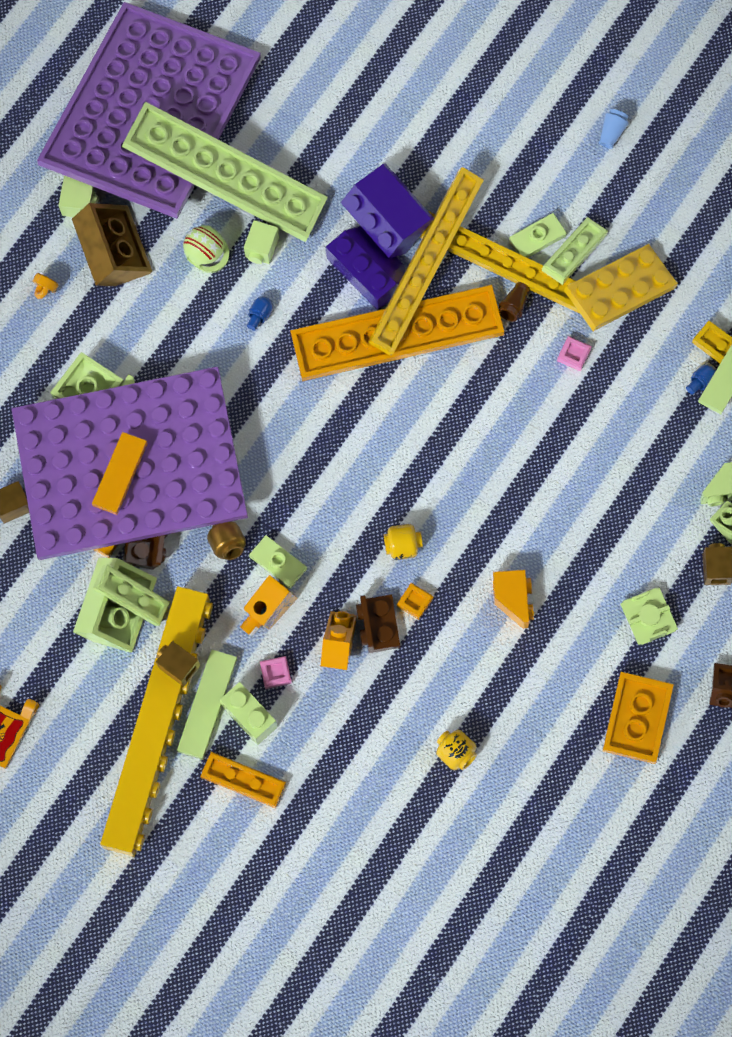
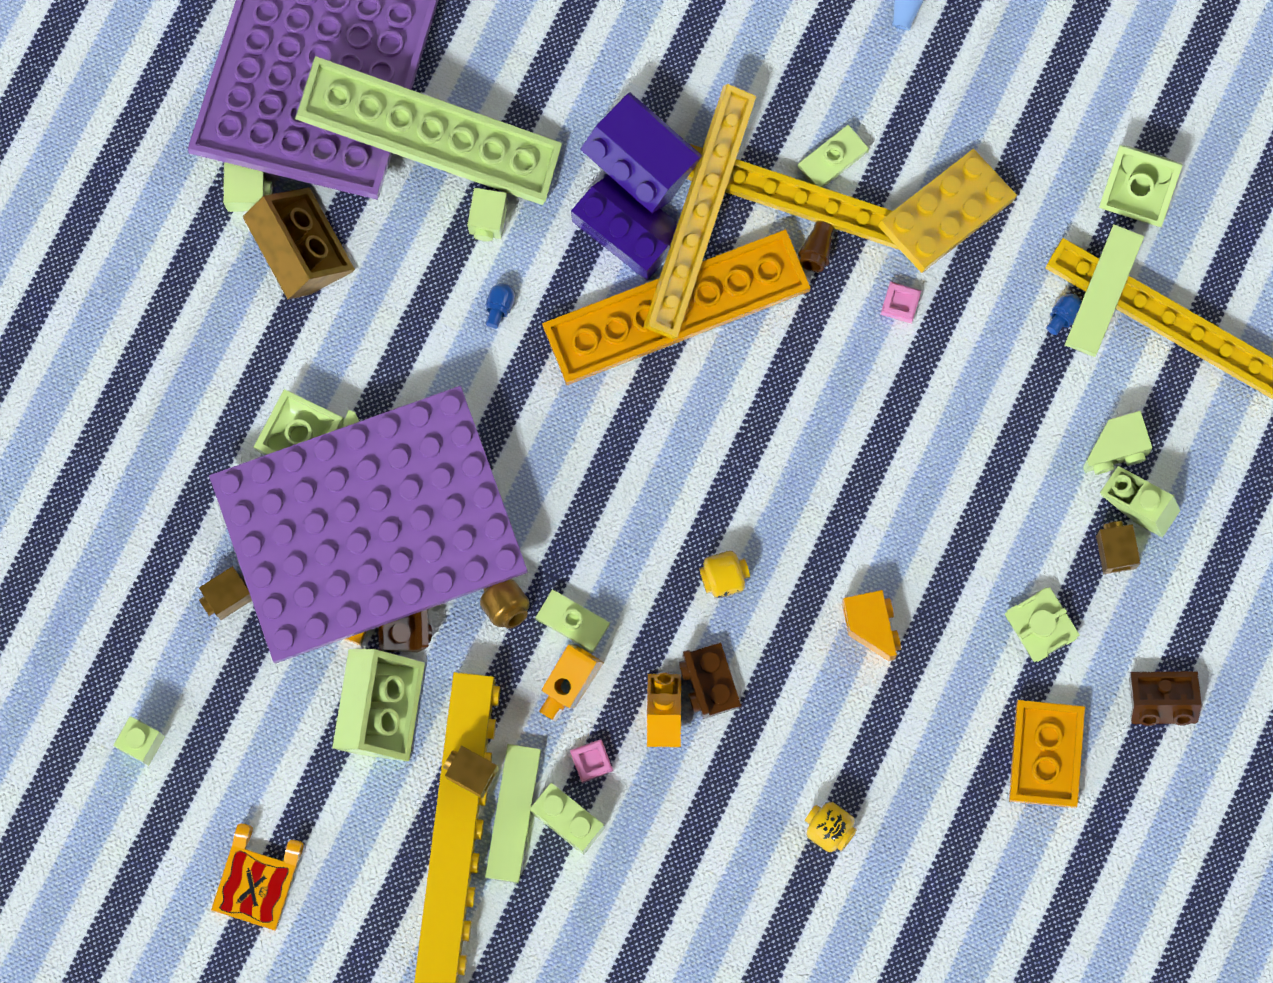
camera: 10 degrees left, 5 degrees up
(44, 285) = (221, 303): light orange tile -> none
(119, 473) = (360, 541): light orange tile -> none
(131, 595) = (398, 692): yellowish green tile -> none
(205, 246) = (418, 230): yellowish green helmet -> none
(243, 780) = (572, 901): light orange tile -> none
(415, 601) = (750, 646): light orange tile -> none
(574, 250) = (883, 170): yellowish green tile -> none

